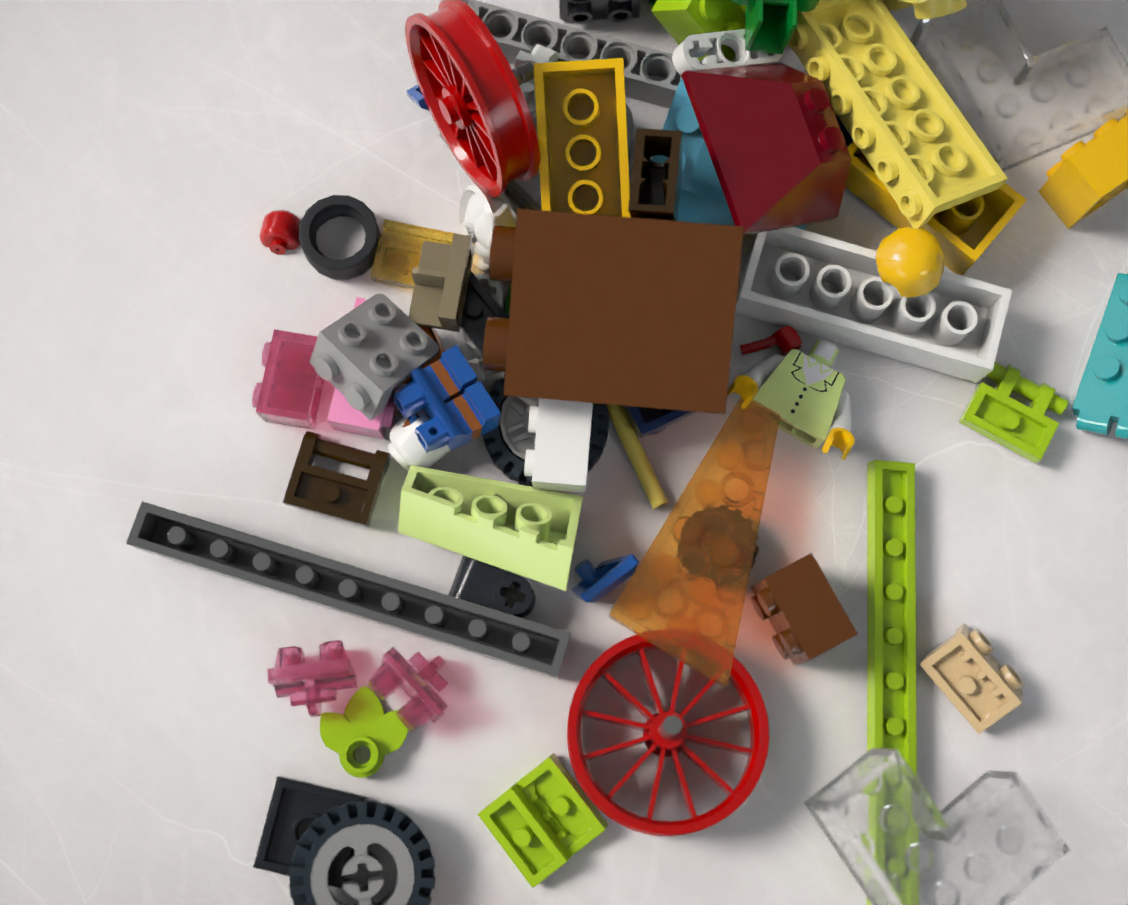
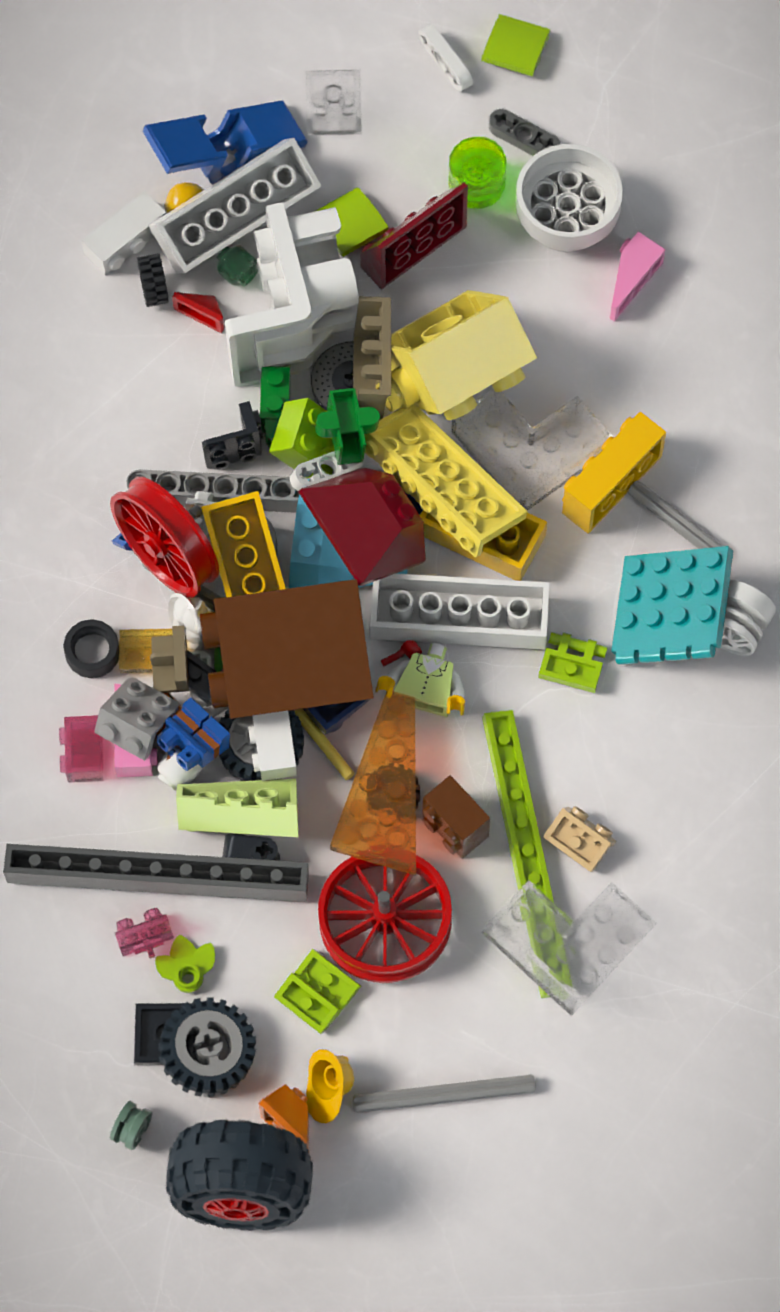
camera: 10 degrees left, 10 degrees down
(280, 231) = (48, 654): red piece -> none
(334, 492) = (128, 815): dark brown plate -> none
(424, 701) = (212, 922): clear pink hips -> none
(604, 578) = (319, 832): blue piece -> none
(656, 185) = (296, 567): dark brown torso -> none
(910, 261) = (477, 578): yellow hair -> none

